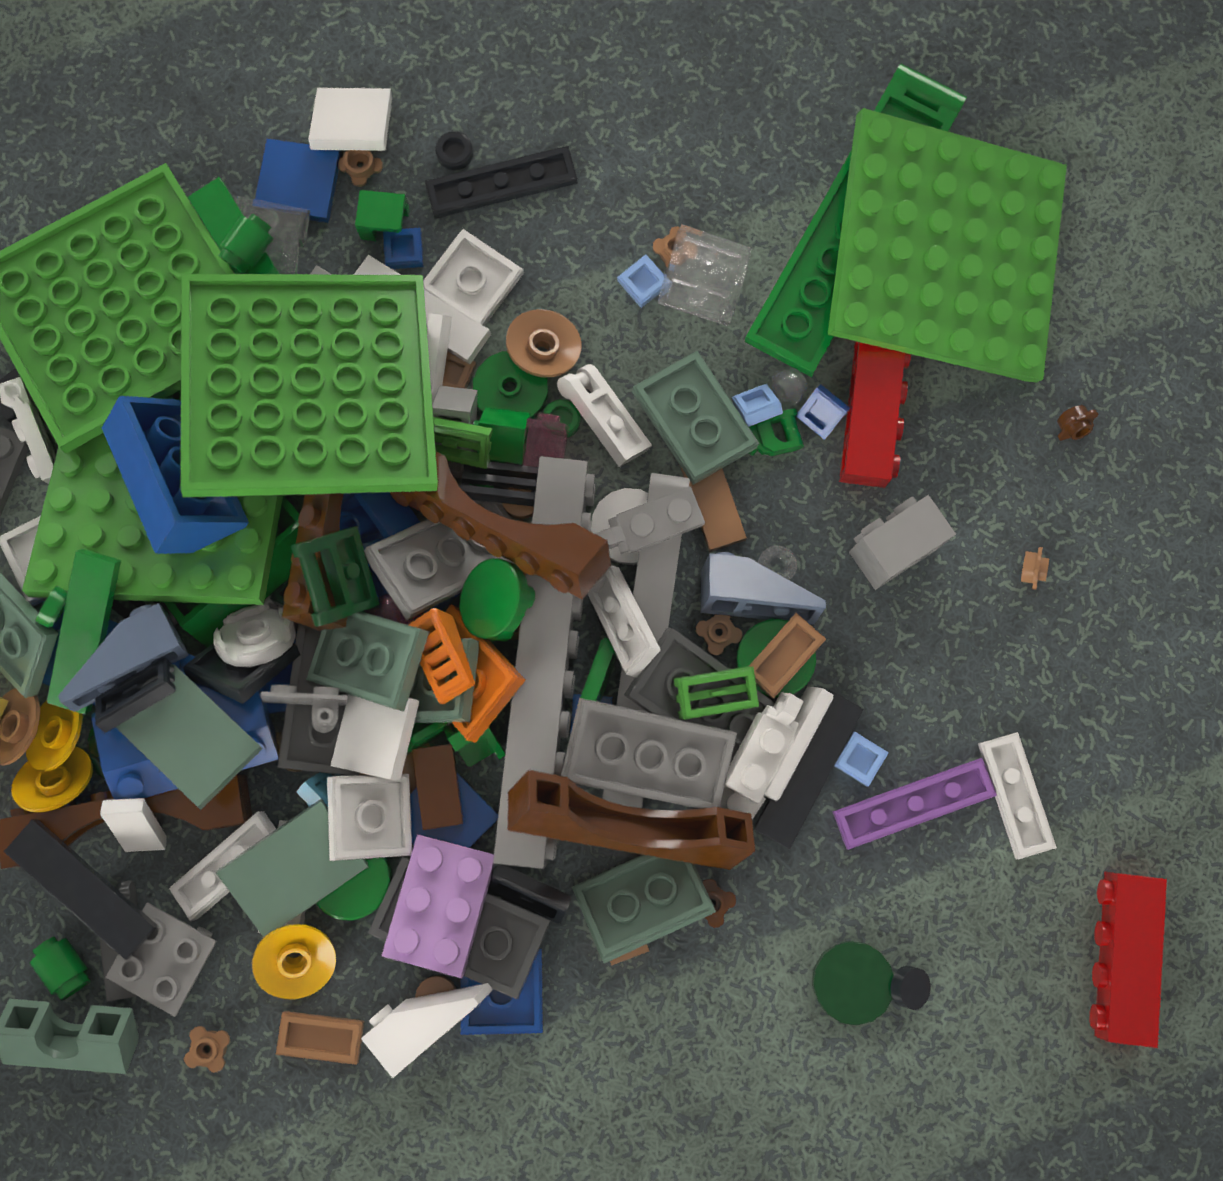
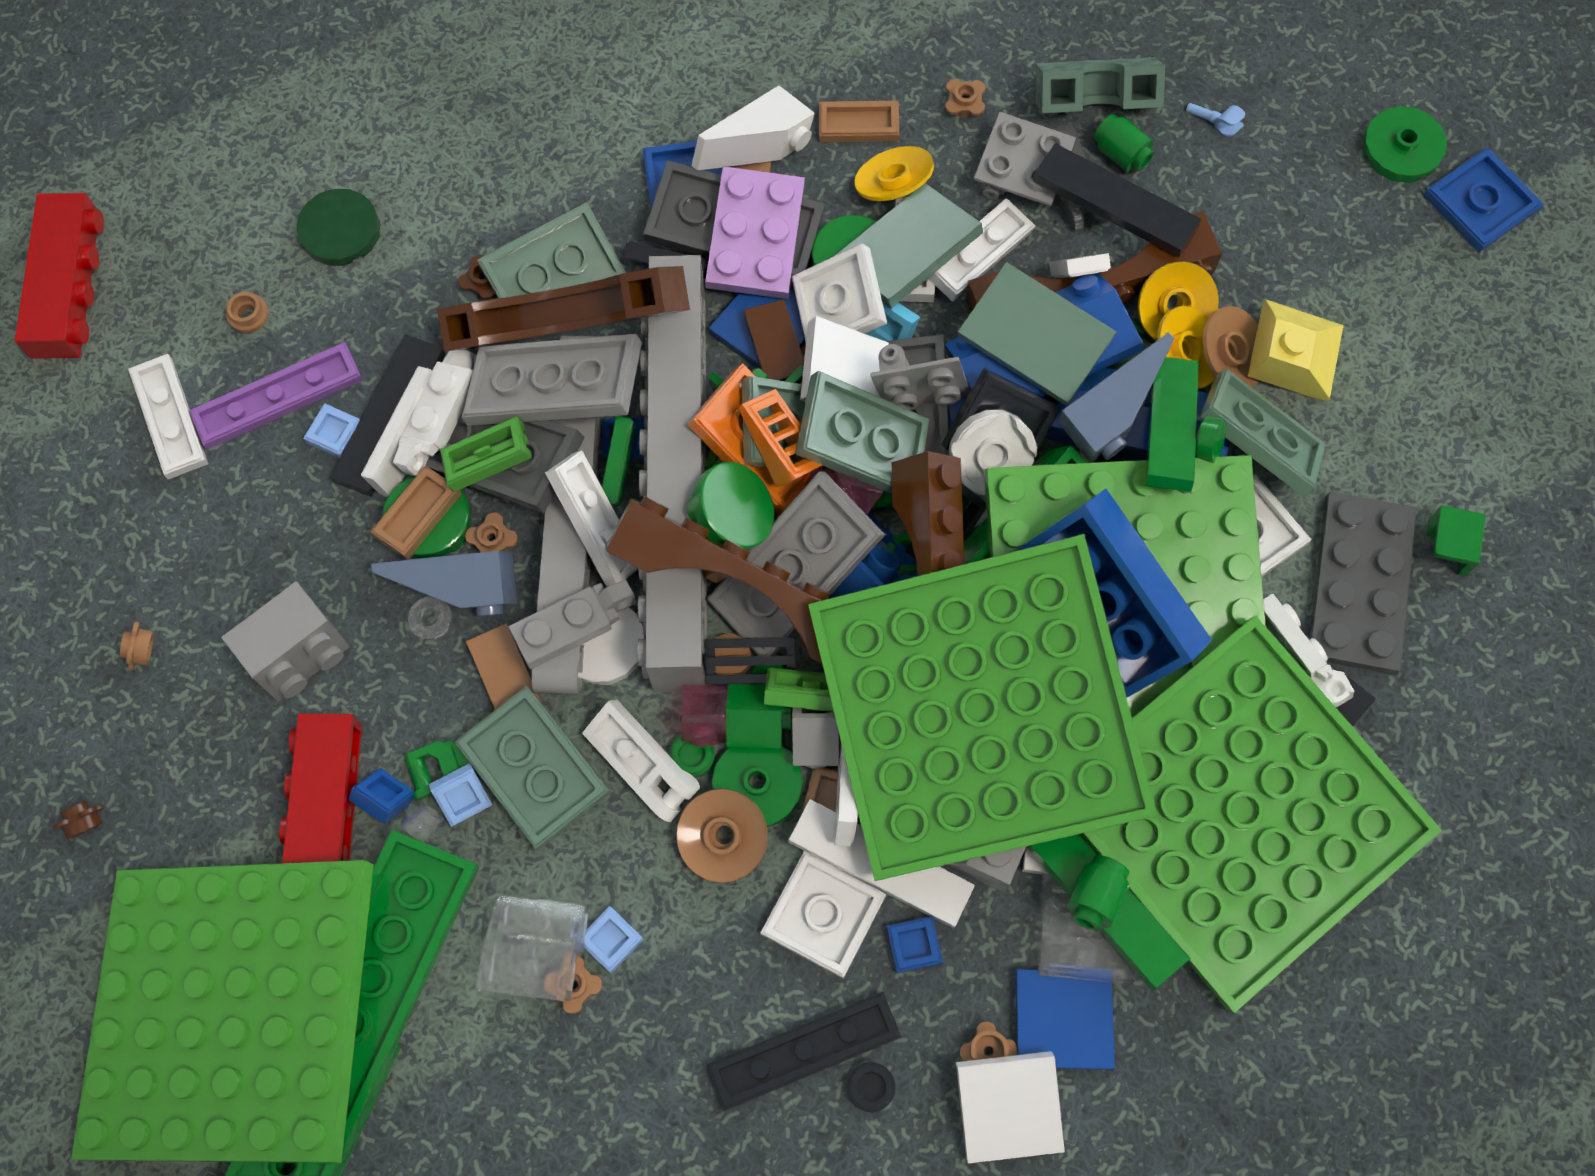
camera: 175 degrees right, 10 degrees down
(134, 695) = (1088, 348): black tile -> none
(346, 573) = (894, 503): dark green plate -> none
(380, 213) = (945, 975): green panel -> none
(910, 987) = (280, 226): black tile -> none
(955, 900) = (239, 304): none -> medium nougat plate

